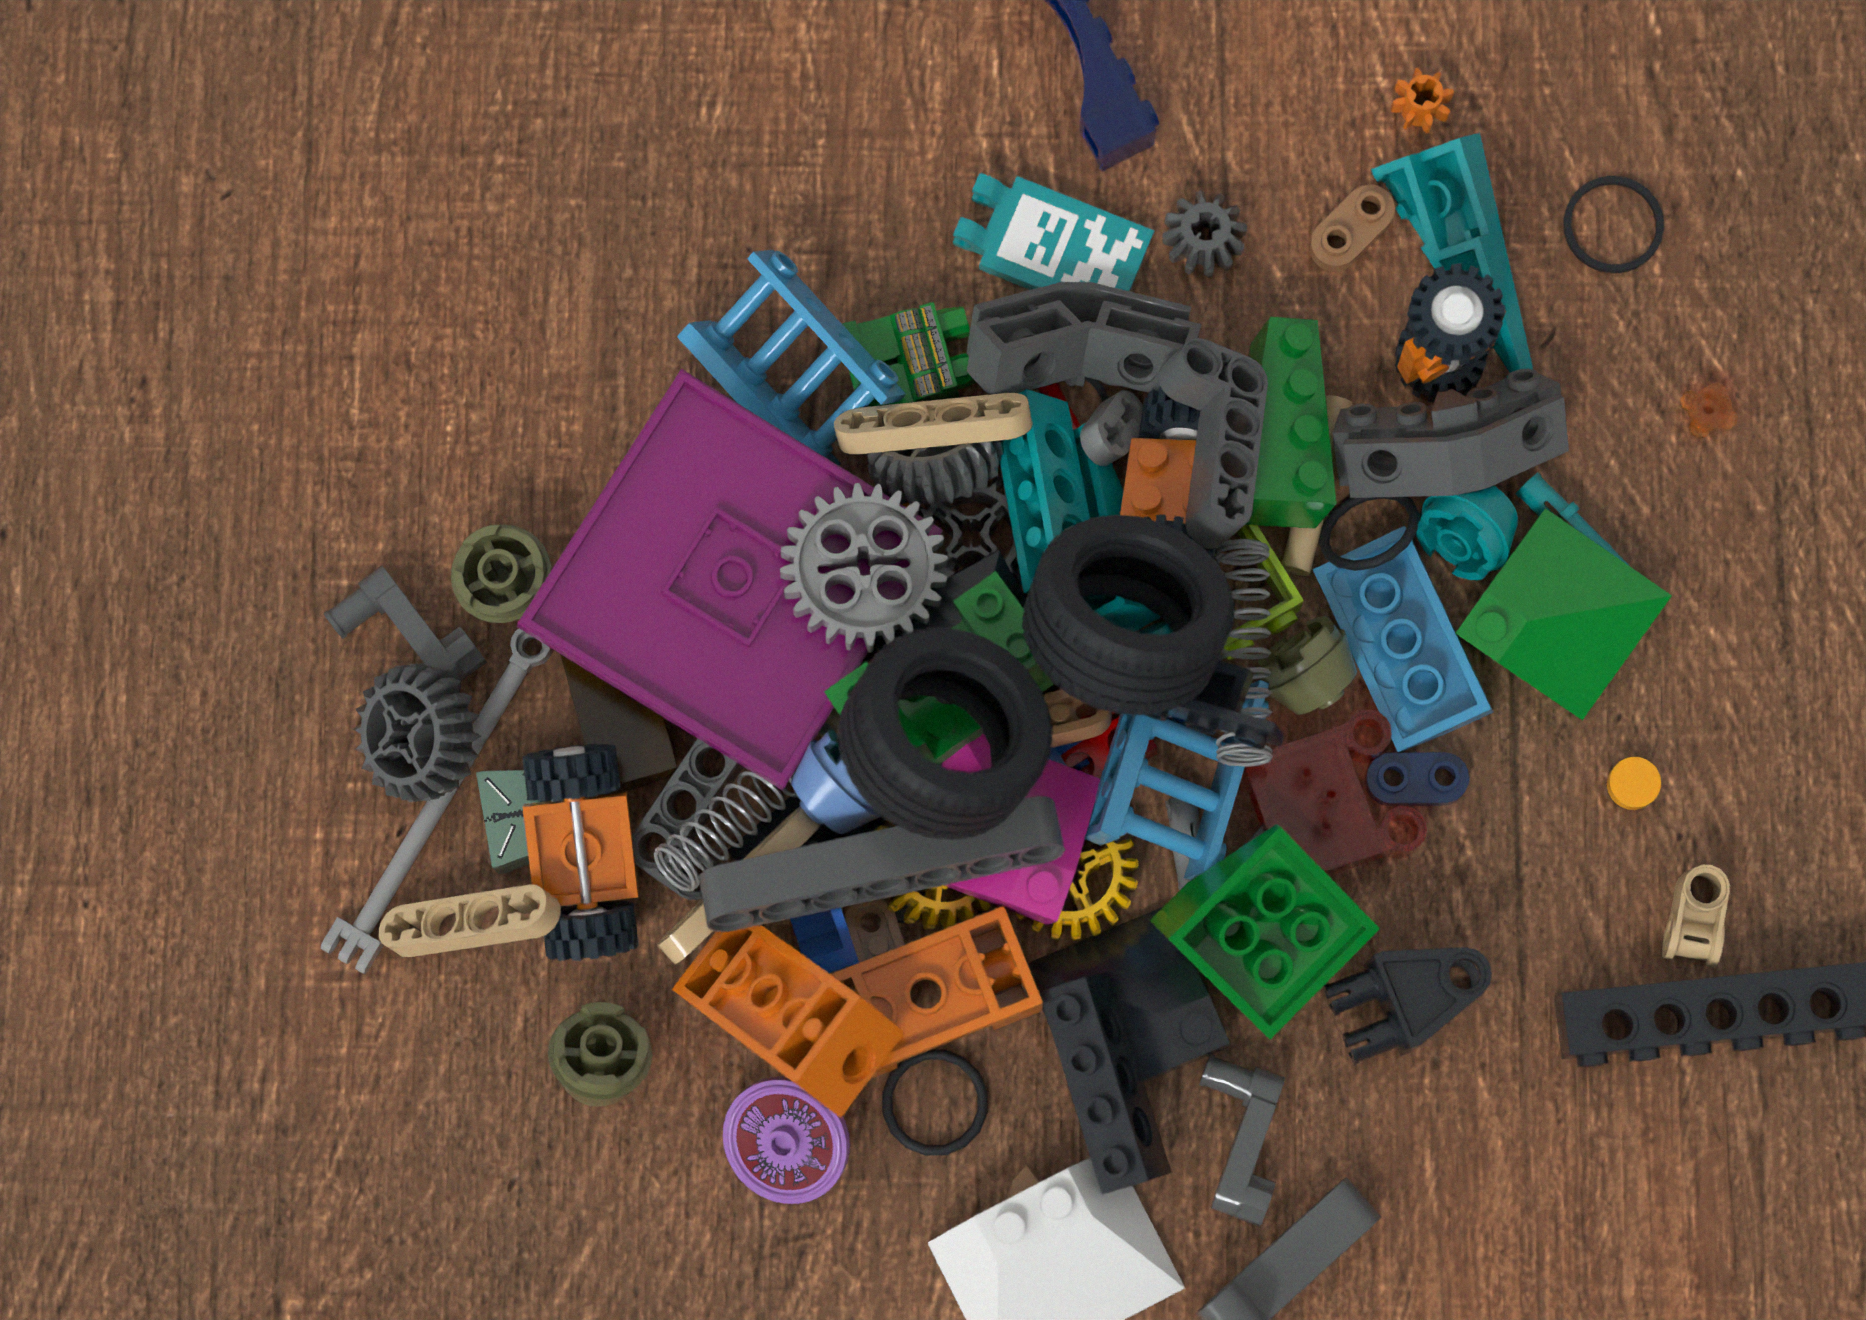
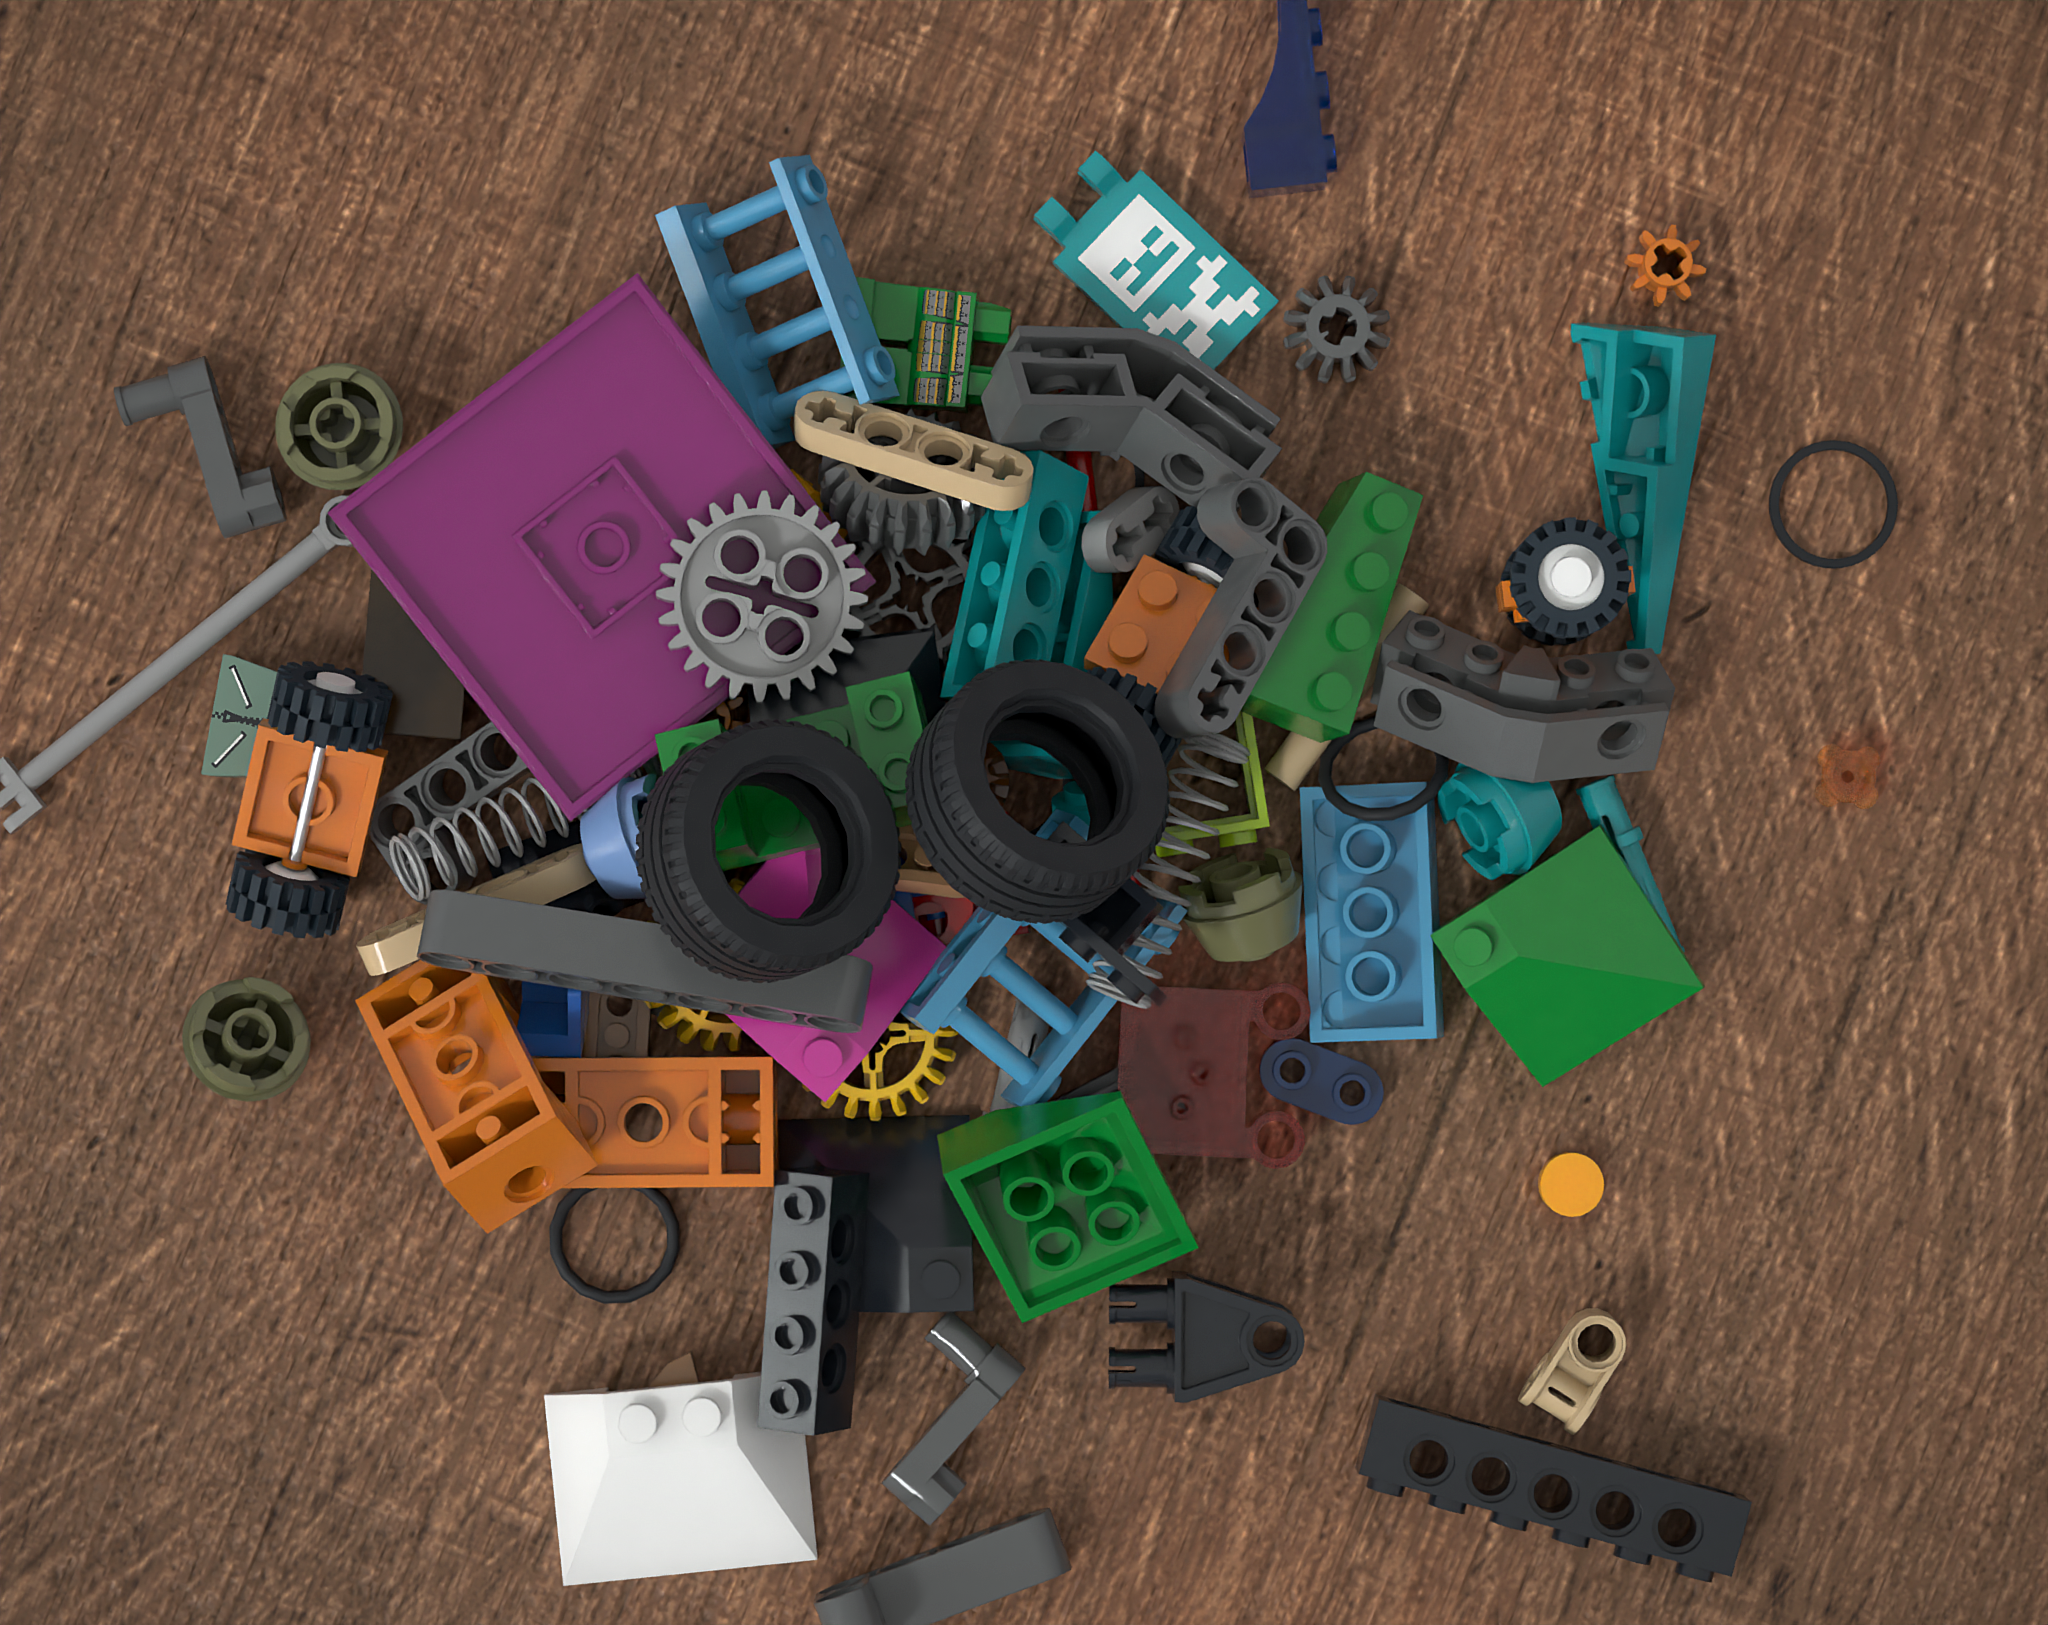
camera: 15 degrees right, 10 degrees up
(428, 733) = (170, 579): dark grey gear -> none
(469, 912) = (153, 821): tan beam -> none
(785, 1142) = (415, 1227): medium lavender shield -> none
(1353, 226) = (1519, 388): medium nougat plate -> none

